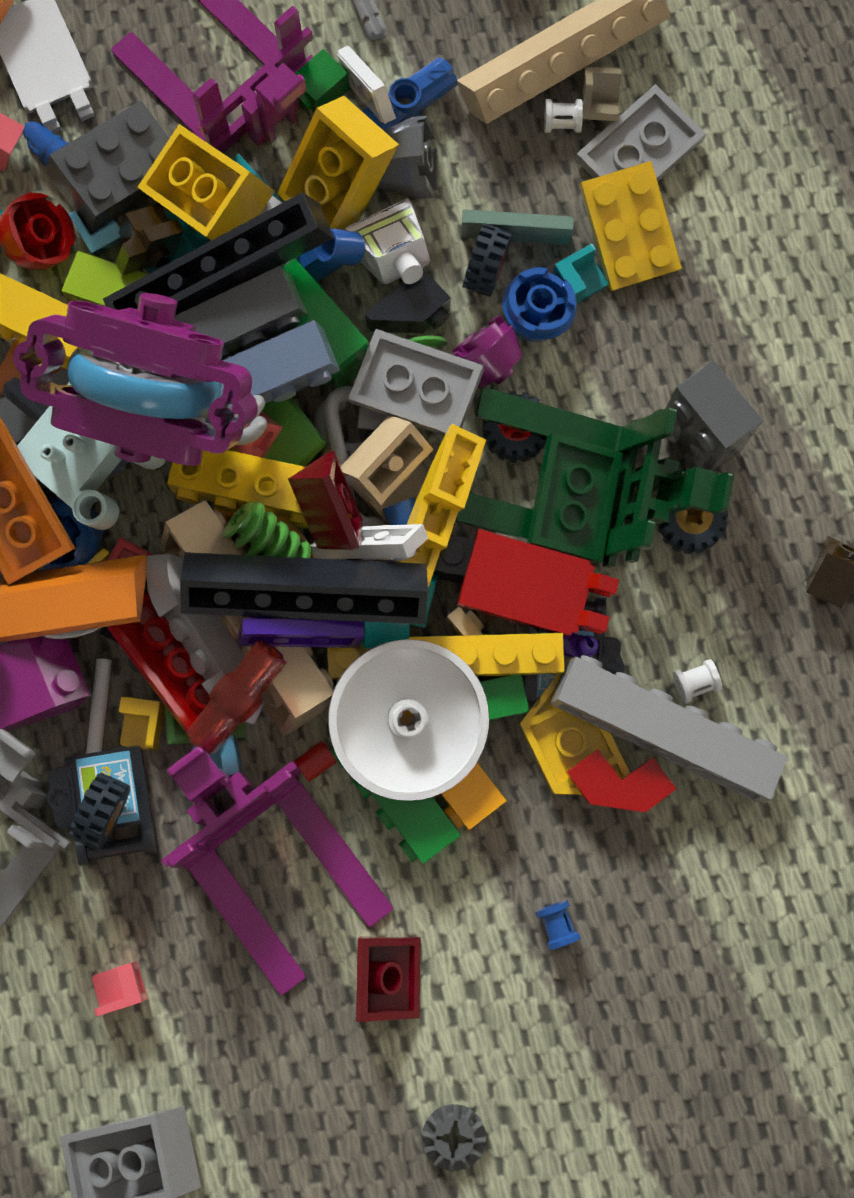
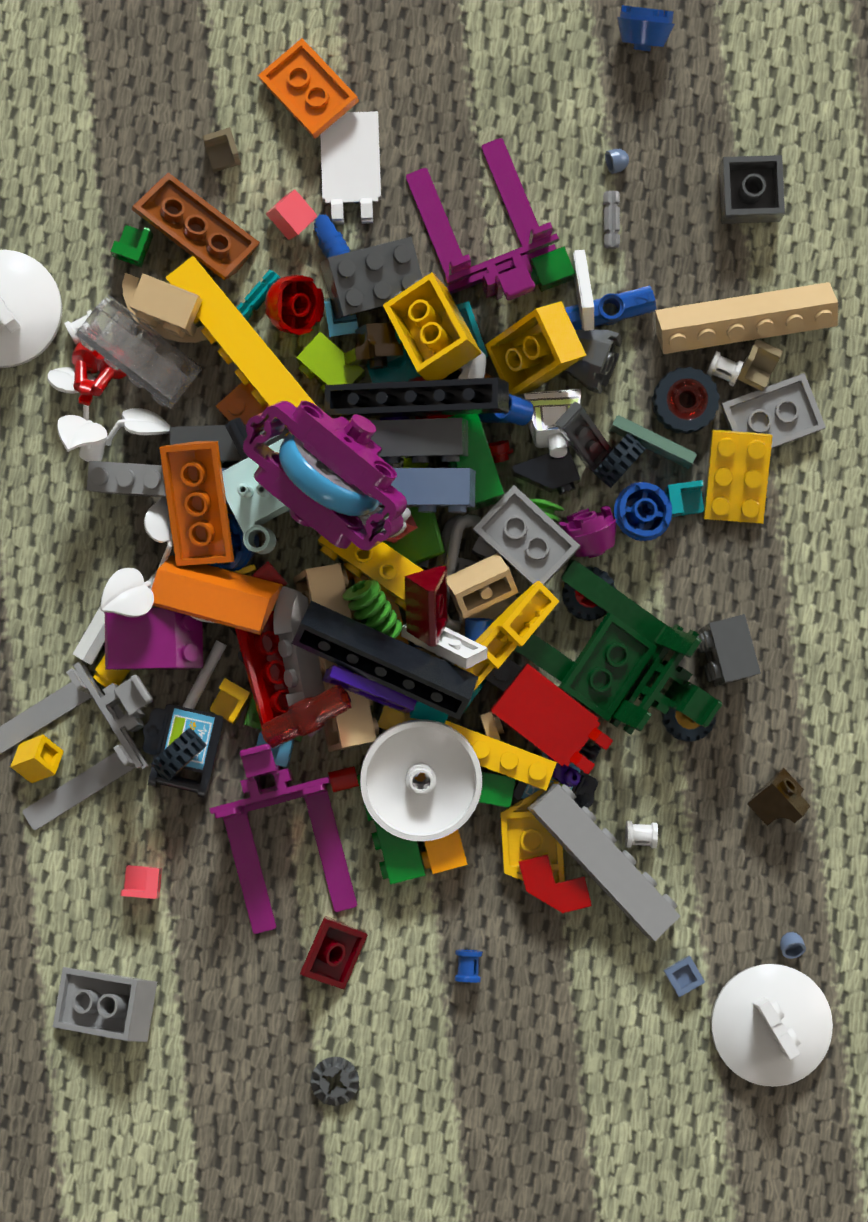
camera: 20 degrees right, 5 degrees up
(347, 305) = (500, 450): none -> red plate
(433, 244) = (583, 436): none -> dark grey tile
(538, 146) = (703, 395): none -> black wheel
(821, 829) = (684, 976): none -> sand blue plate

